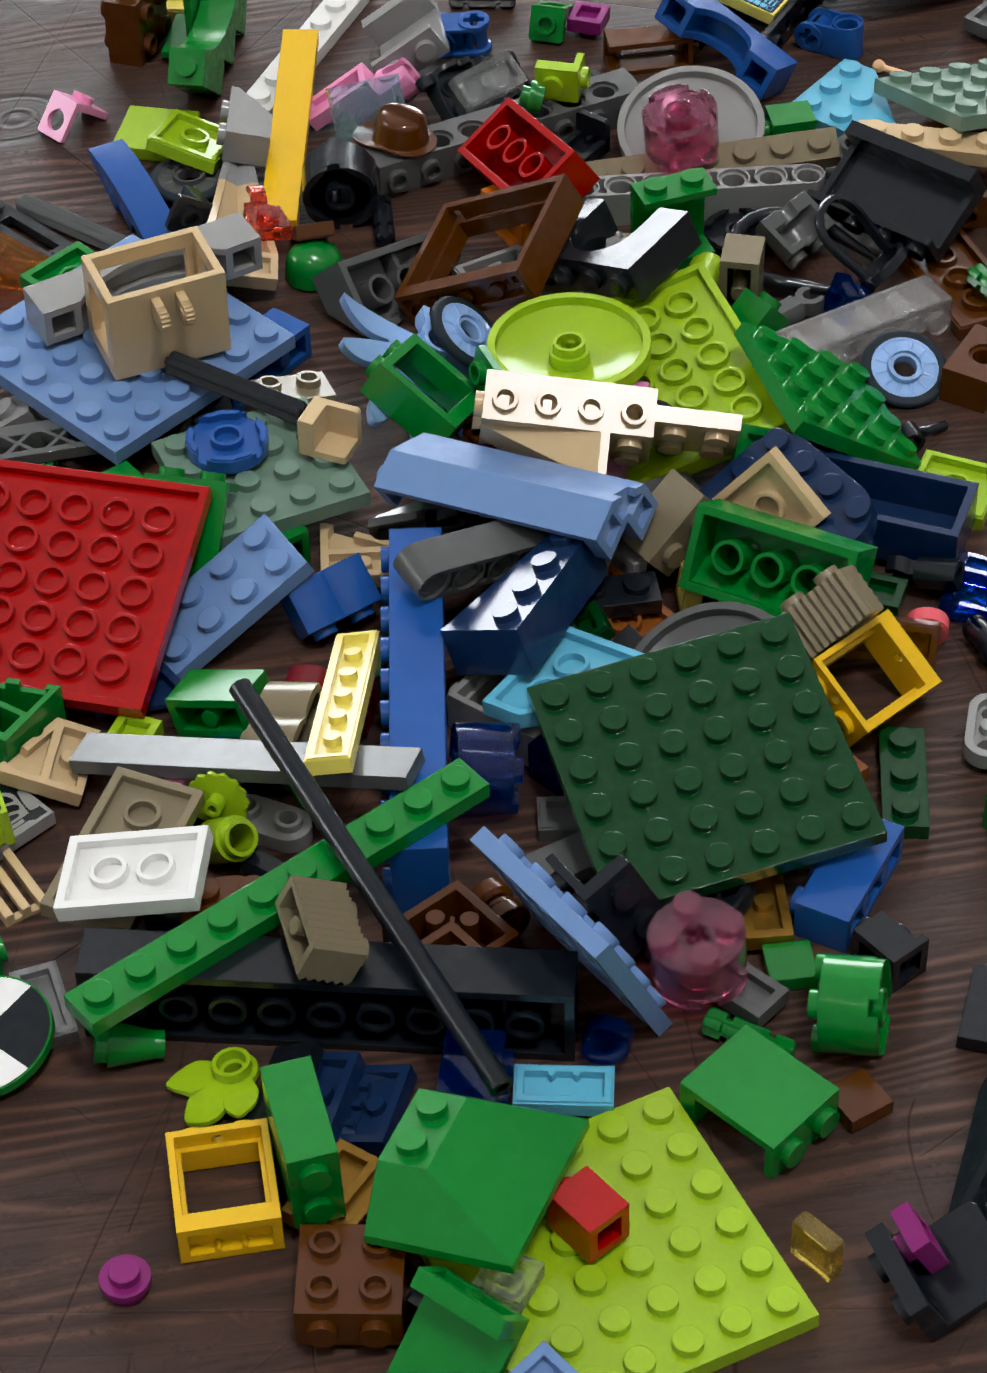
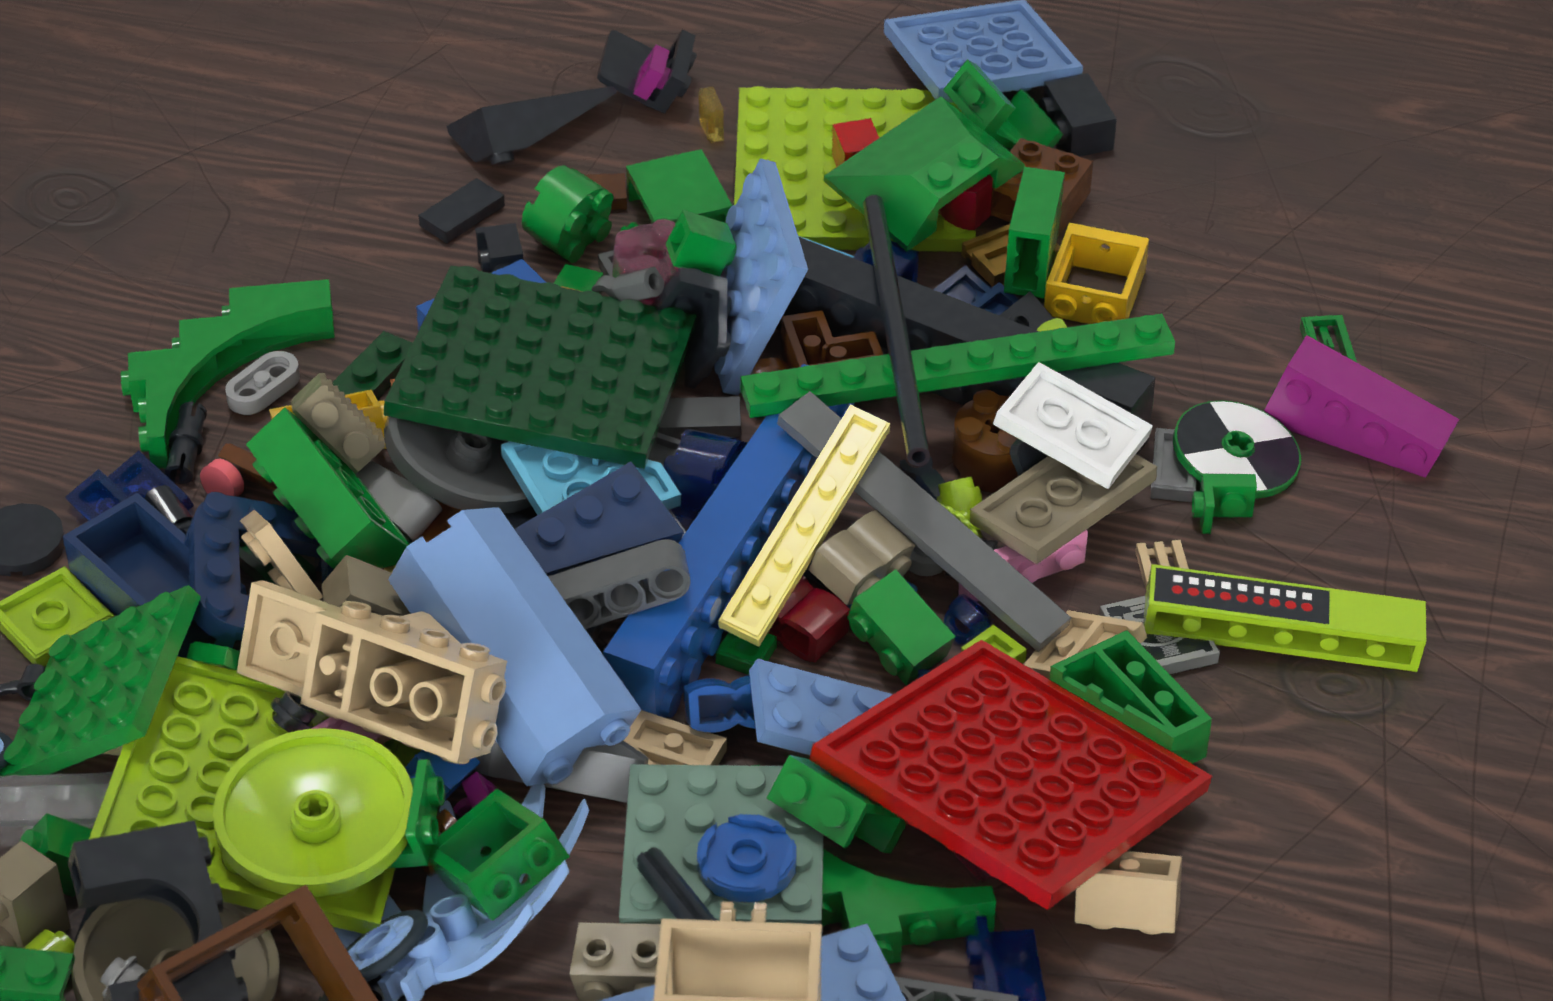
camera: 155 degrees left, 0 degrees up
(125, 1279) = (1192, 262): magenta plate -> none
(321, 929) = (950, 302): dark tan brick -> none
(329, 430) = (638, 814): tan panel -> none
(631, 905) = (701, 244): none -> green brick
(673, 879) = (632, 285): none -> dark grey bar

